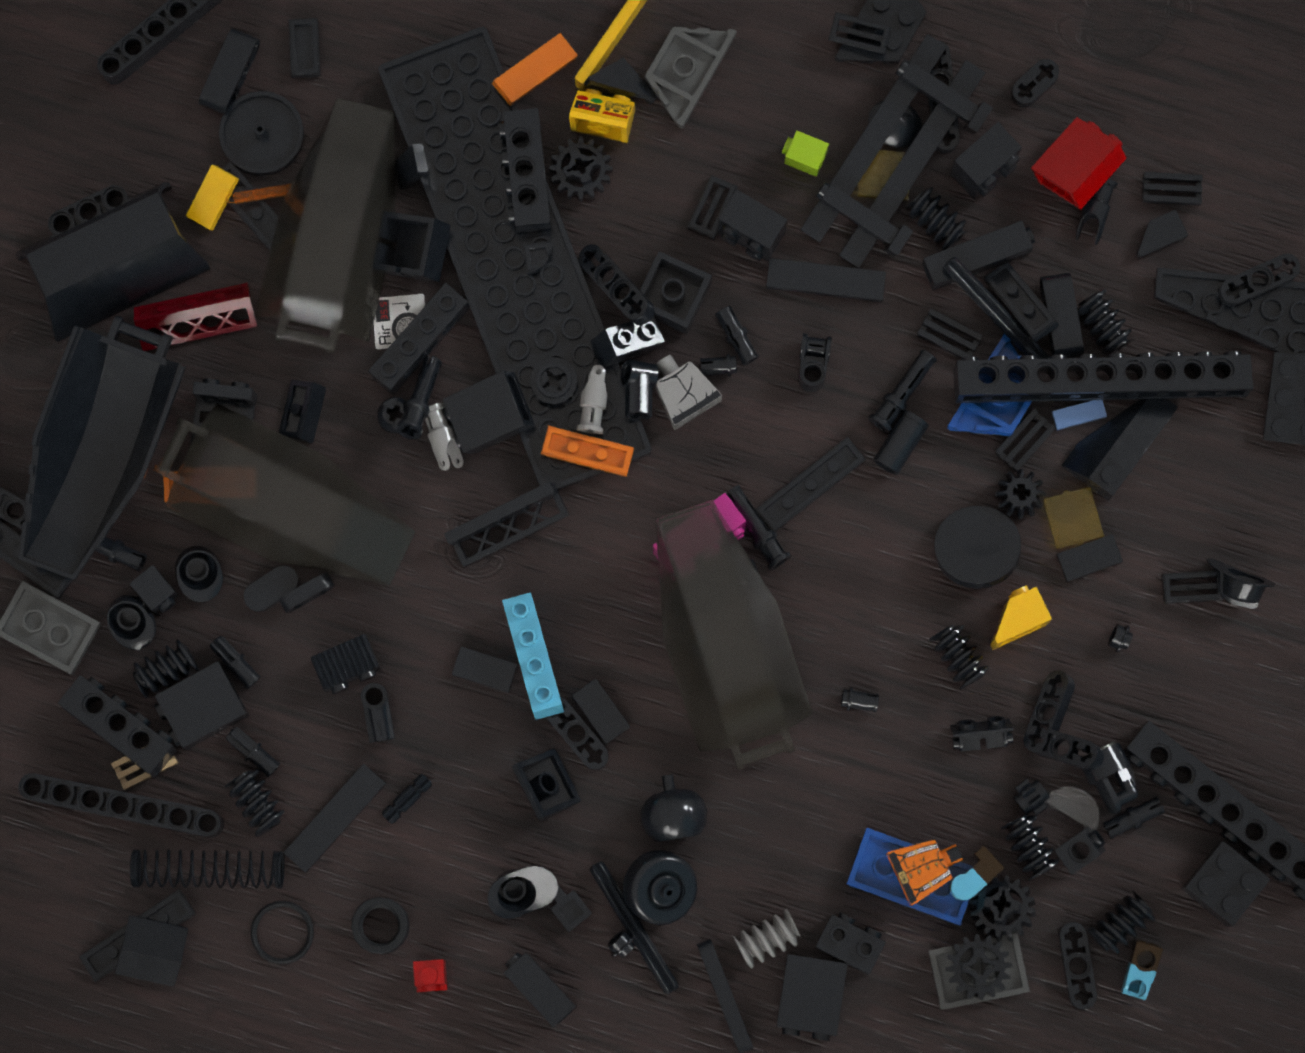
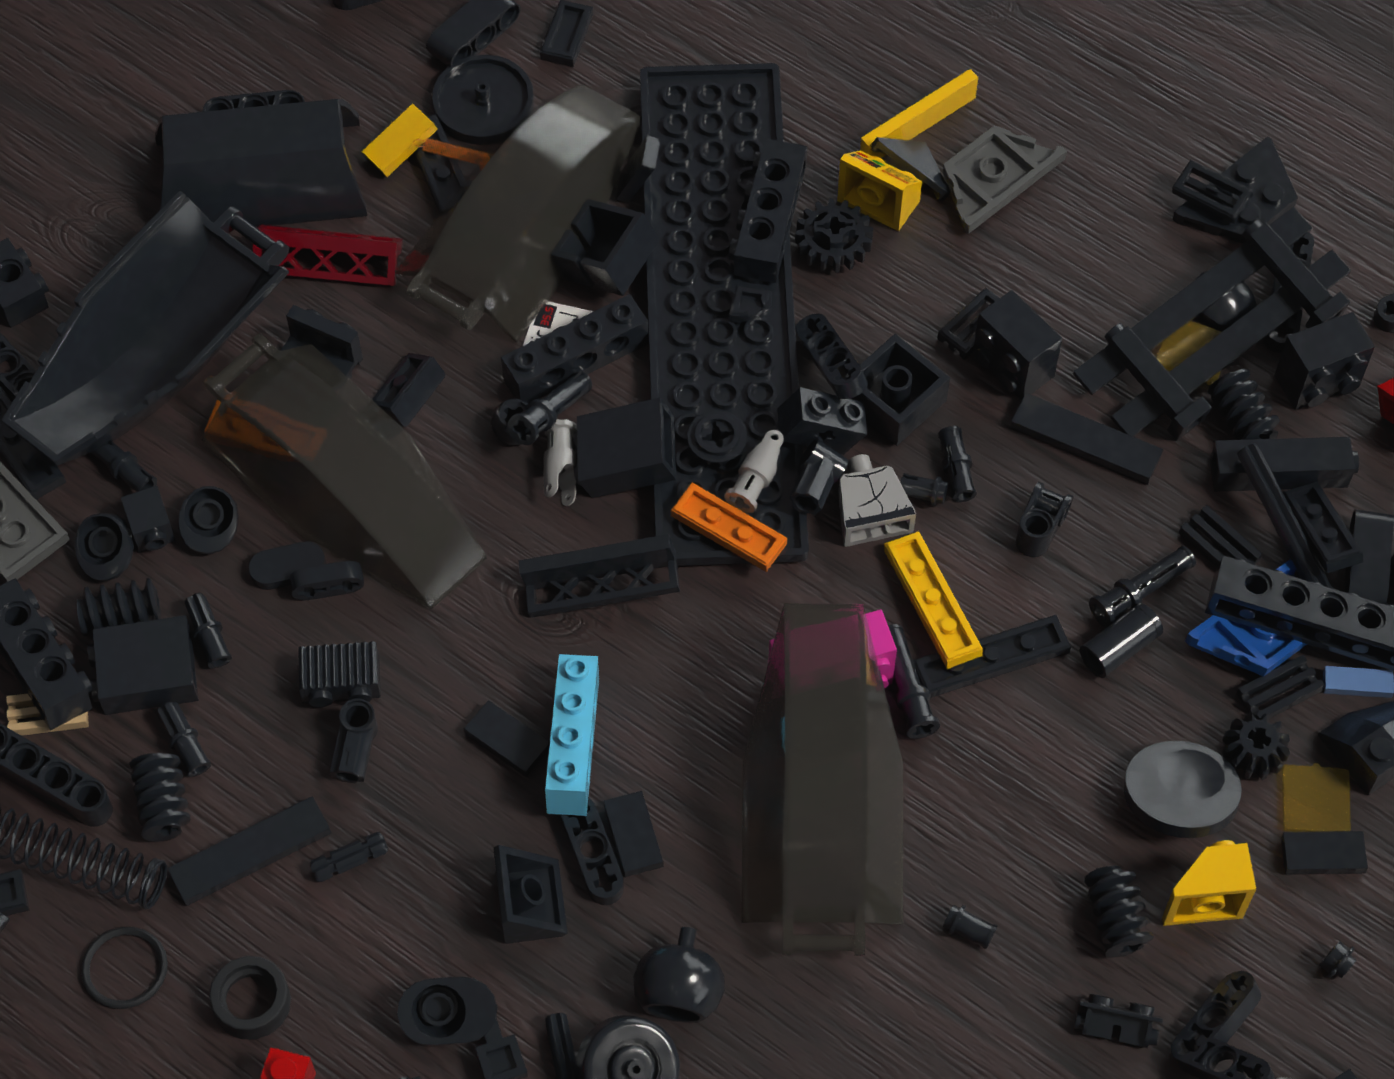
camera: 15 degrees right, 20 degrees down
(535, 69) = (819, 121): orange tile -> none
(754, 455) = (933, 600): none -> yellow tile
(805, 153) = (1107, 293): lime brick -> none

